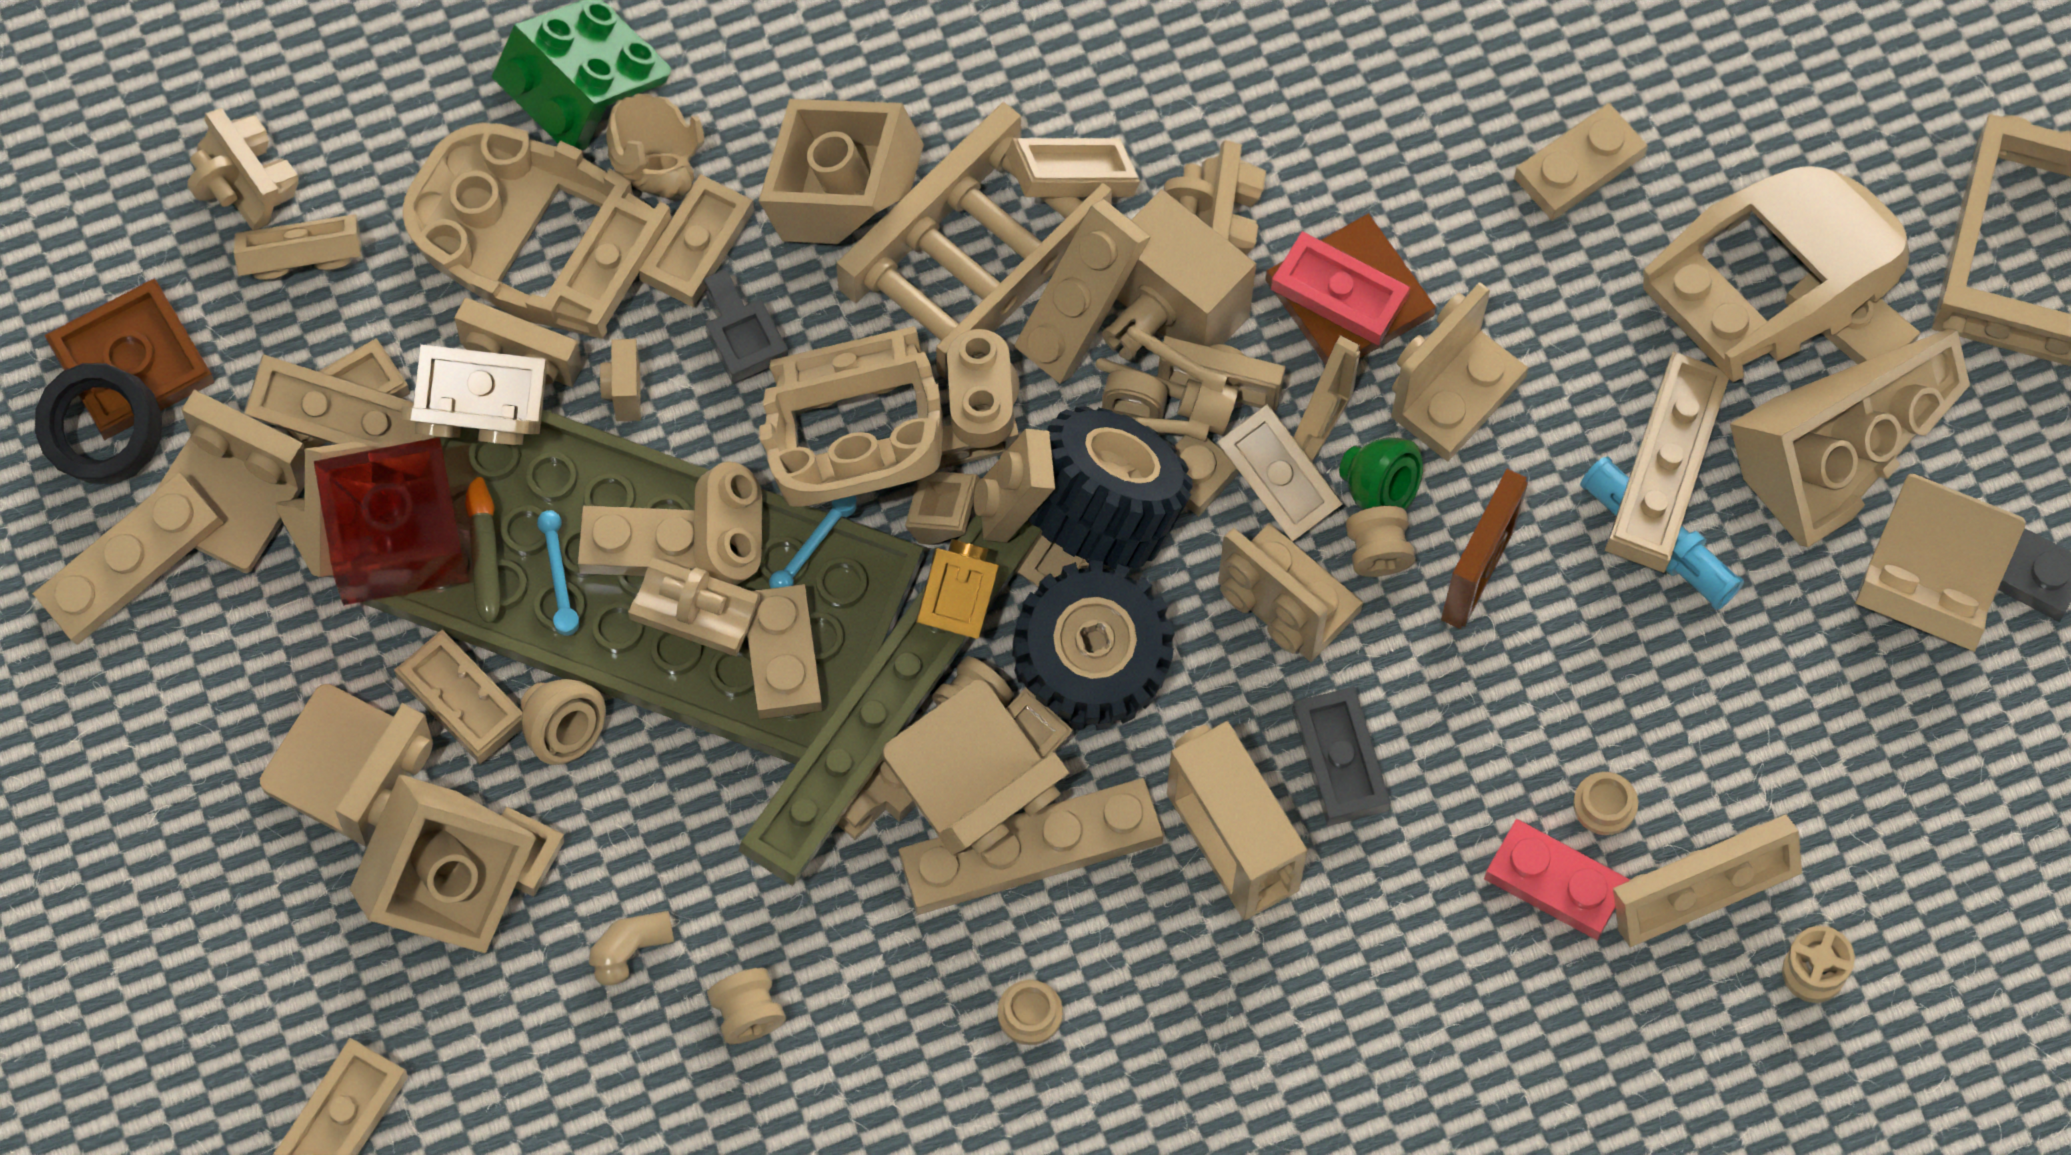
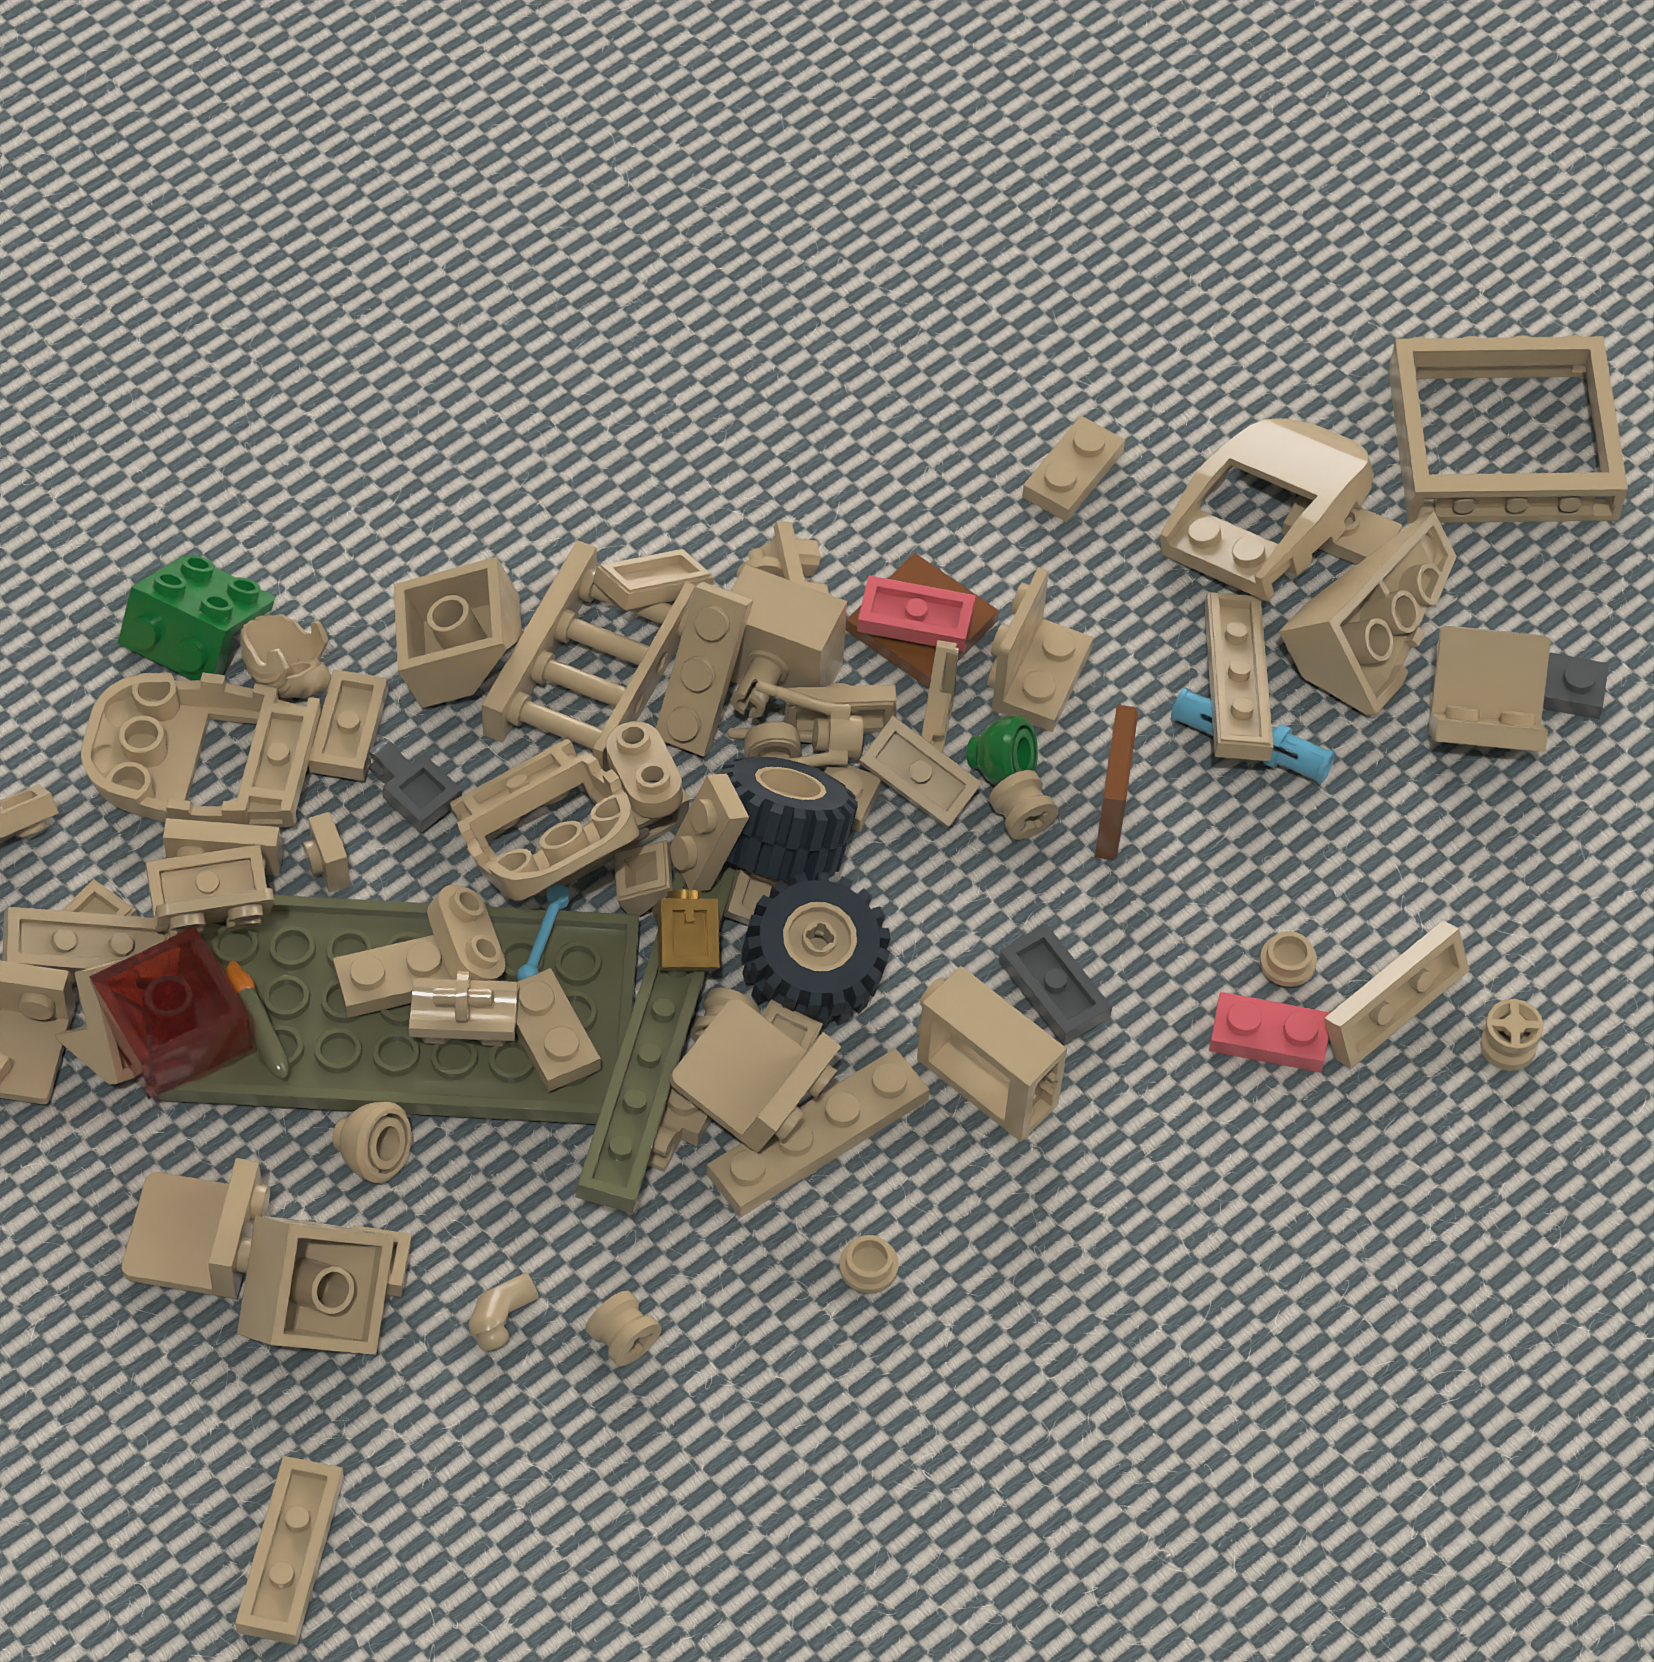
camera: 20 degrees left, 10 degrees down
(460, 696) = (283, 1149): tan plate -> none
(565, 619) = (350, 1056): medium azure hinge -> none
(1285, 590) = (957, 866): tan bracket -> none

